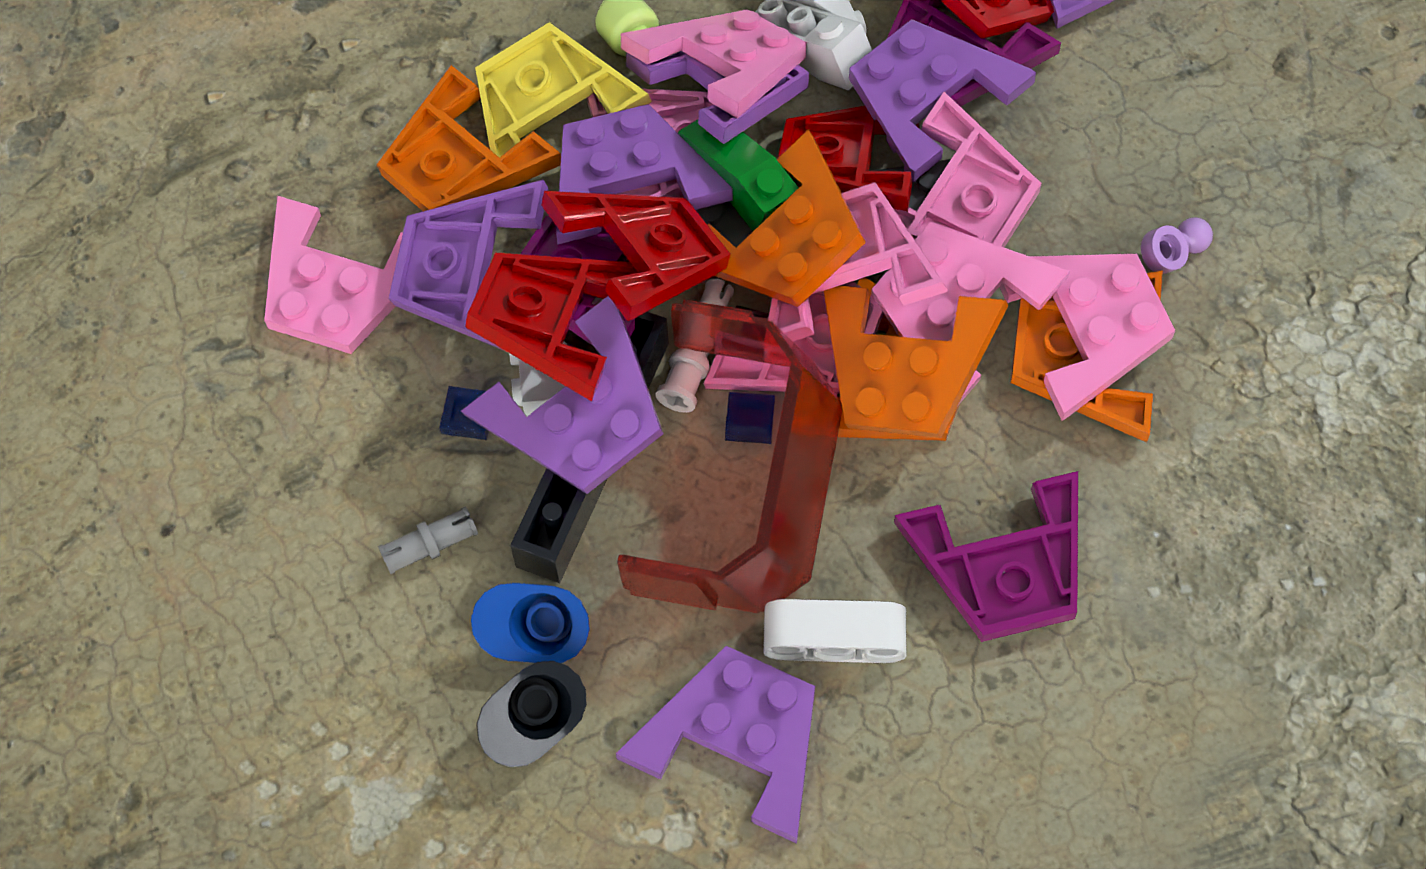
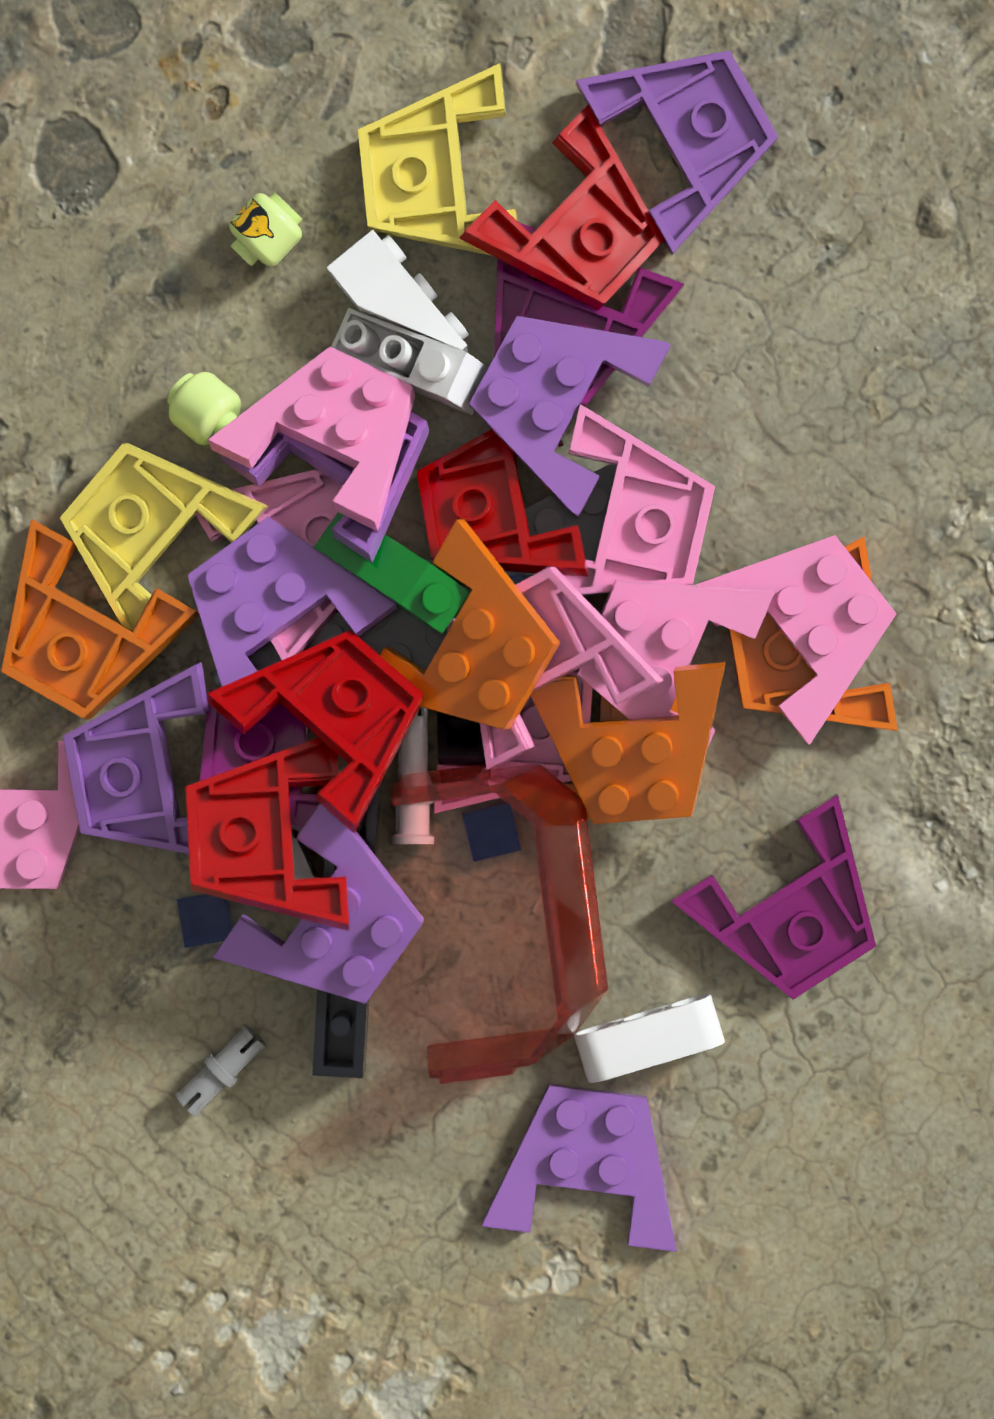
camera: 25 degrees left, 25 degrees up
(530, 623) = (359, 1134): blue piece -> none
(531, 713) = (390, 1224): black piece -> none
(1169, 247) = (882, 475): lavender plate -> none

